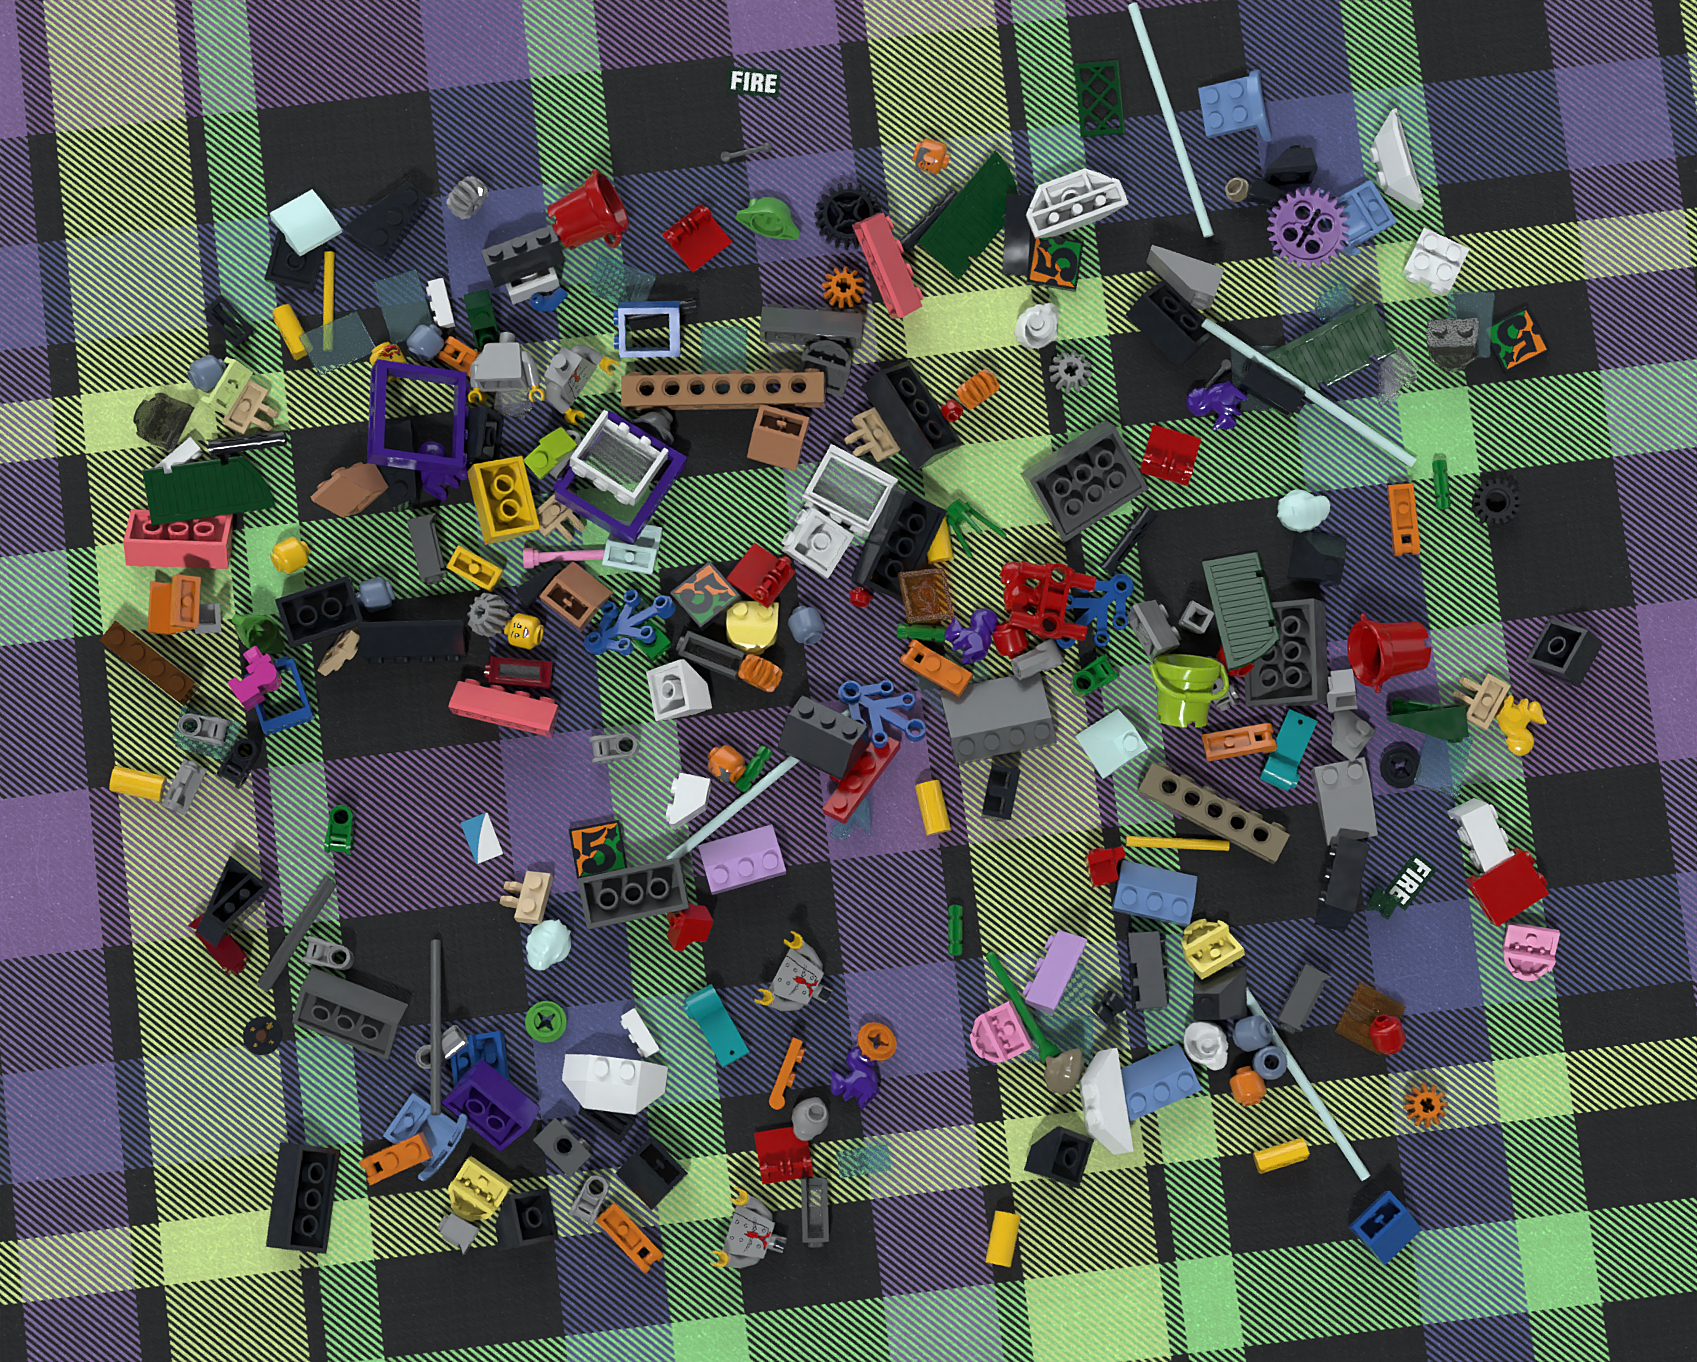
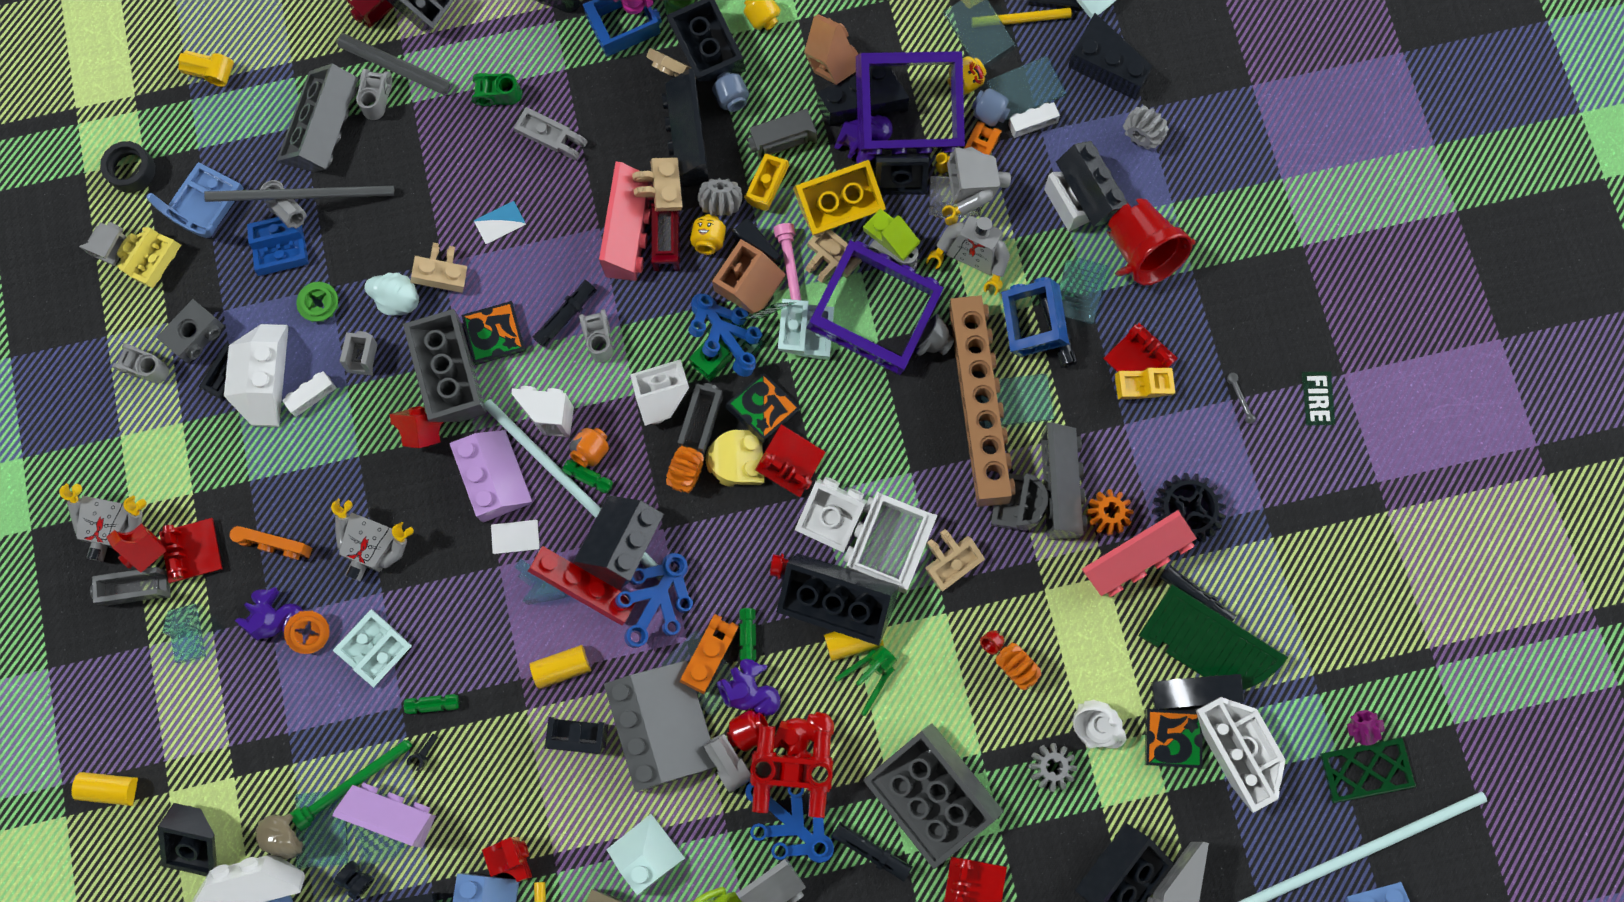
camera: 90 degrees right, 5 degrees down
(262, 1035) = (296, 47): piece -> none
(278, 1119) = (212, 68): none -> yellow piece
(303, 1198) = (137, 98): black slope -> none
(358, 1207) = (115, 154): none -> black tyre
(394, 781) = (548, 133): none -> light grey hinge
(396, 1158) = (175, 176): orange plate -> none
(472, 663) = (665, 181): none -> tan hinge
(481, 318) = (1025, 156): dark green slope -> none
(491, 1105) = (228, 257): dark purple slope -> none
(526, 1220) = (116, 305): black slope -> none
(548, 303) = (1049, 220): blue arm -> none
(587, 778) = (567, 310): none -> black pin
(605, 980) = (358, 353): none -> light grey window
(614, 577) = (768, 310): none -> clear green sticker
(617, 460) = (890, 296): window -> none
(629, 1237) = (103, 406): orange plate -> none
(651, 1173) = (168, 422): black slope -> none
(716, 1025) = (321, 468): teal door -> none
(723, 237) = (1145, 384): none -> yellow slope
(769, 218) = (1173, 426): bright green hat -> none
(778, 437) = (938, 461): nougat slope -> none
(781, 1194) = (137, 547): none -> red brick
(803, 843) = (515, 536): none -> white sticker
(806, 625) = (741, 512): sand blue head -> none
(809, 1118) = (227, 572): light grey piece -> none
(896, 983) = (372, 648): none -> light aqua slope
(911, 415) = (981, 599): black slope -> none
(926, 595) = (783, 632): clear orange slope -> none
(931, 156) = (1269, 589): orange head -> none
(998, 939) = (423, 753): none -> black hand
(1000, 1034) = (320, 763): bright pink slope -> none
(1063, 94) = (1366, 727): none -> magenta gear
(1097, 674) = (717, 829): green piece -> none

